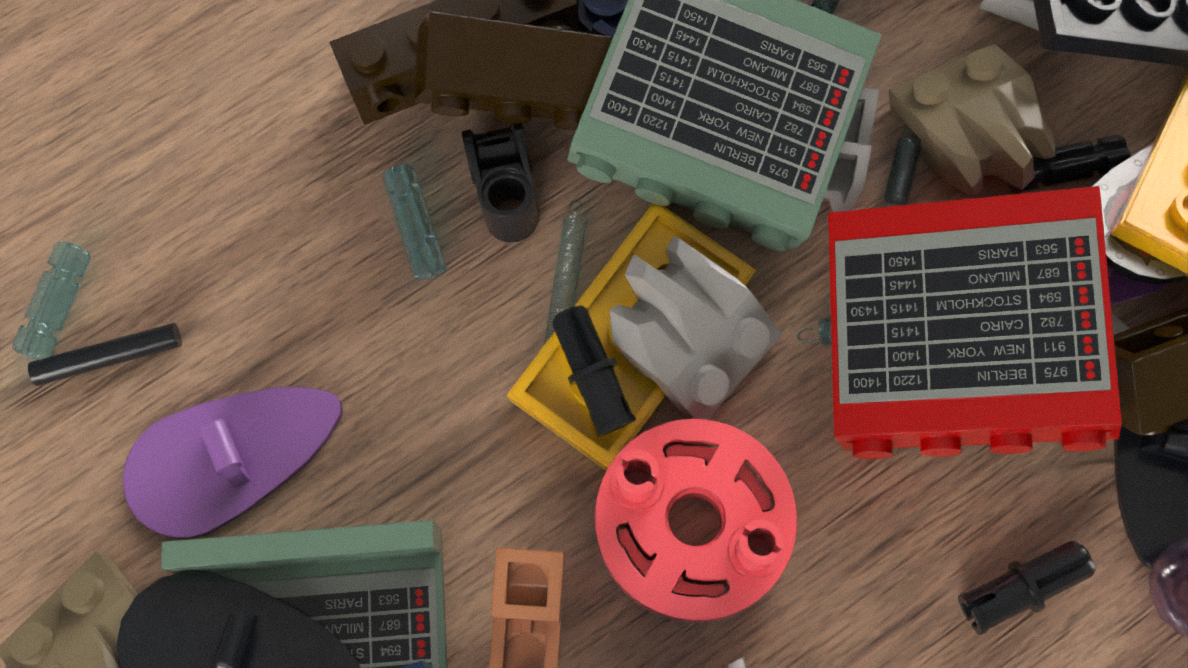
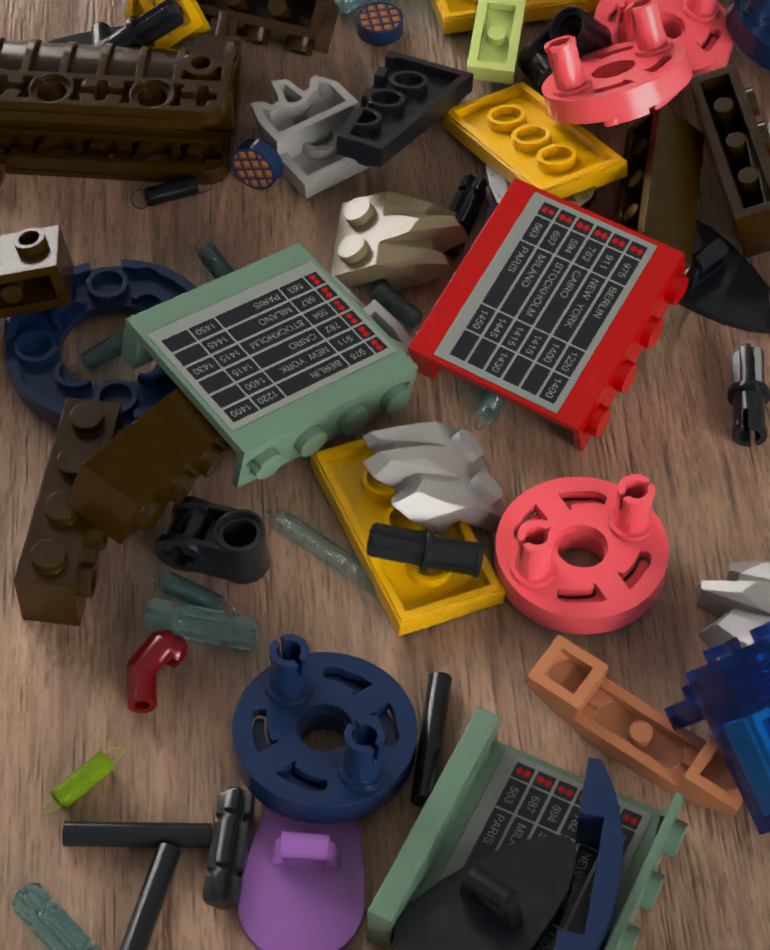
camera: 65 degrees left, 20 degrees down
(178, 301) = (136, 834): none -> black piece
(199, 383) = (228, 848): none -> black axle
(206, 224) = (82, 780): none -> lime piece
(344, 202) = (144, 665): none -> dark red arm
(362, 347) = (316, 693): none -> dark blue piece
(411, 491) = (431, 737): none -> black piece
(444, 195) = (191, 592): none -> clear light blue piece

